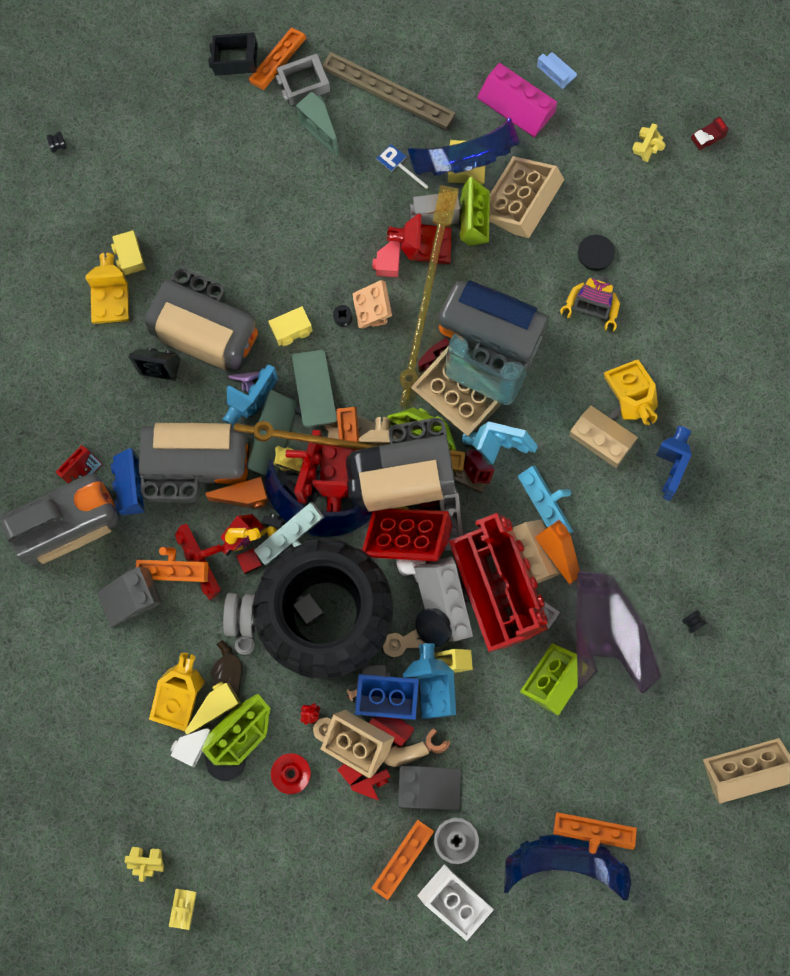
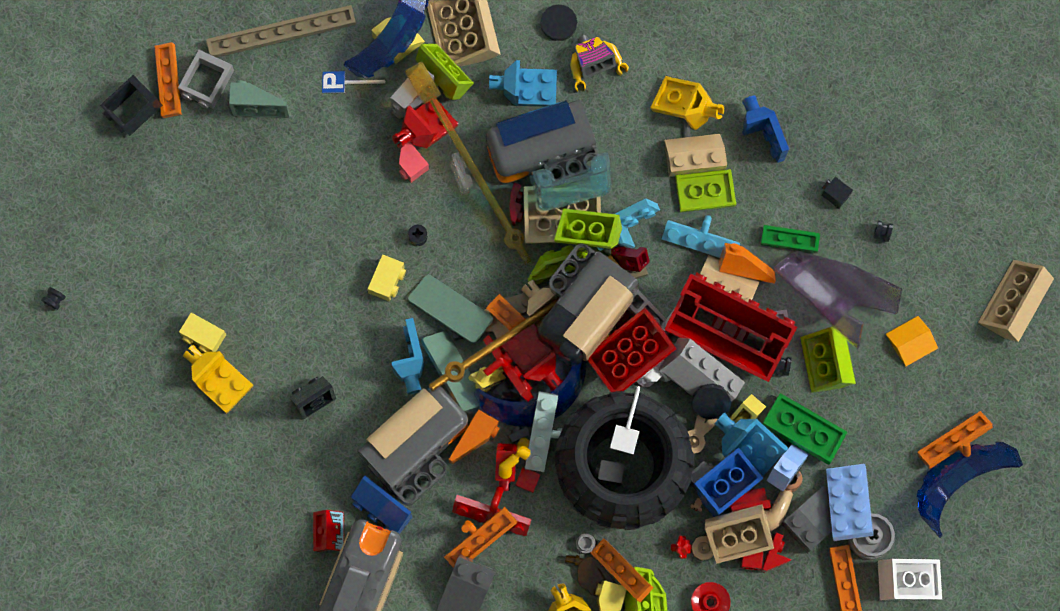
camera: 55 degrees left, 0 degrees up
(201, 322) = (321, 336): piece -> none
(239, 615) = (565, 523): light grey wheel -> none
(245, 688) = (622, 570): none -> orange plate
(246, 379) = (393, 346): lavender piece -> none
(330, 589) = (624, 437): none -> white piece
(372, 305) = (433, 207): light nougat plate -> none
(411, 304) = (463, 180): none -> clear plate
(445, 728) = (787, 467): none -> light blue slope
(460, 416) = (589, 228): none -> lime slope
(463, 799) = (849, 502): none -> light blue plate
(485, 713) = (804, 429): none -> green plate
(516, 651) = (783, 366): none -> black wheel
(526, 277) = (526, 86): none -> dark azure plate
(586, 470) = (705, 190): none -> lime tile
(615, 563) = (790, 239): none -> green plate
(636, 725) = (912, 340): none -> light orange slope
(686, 559) = (836, 192): none -> black brick

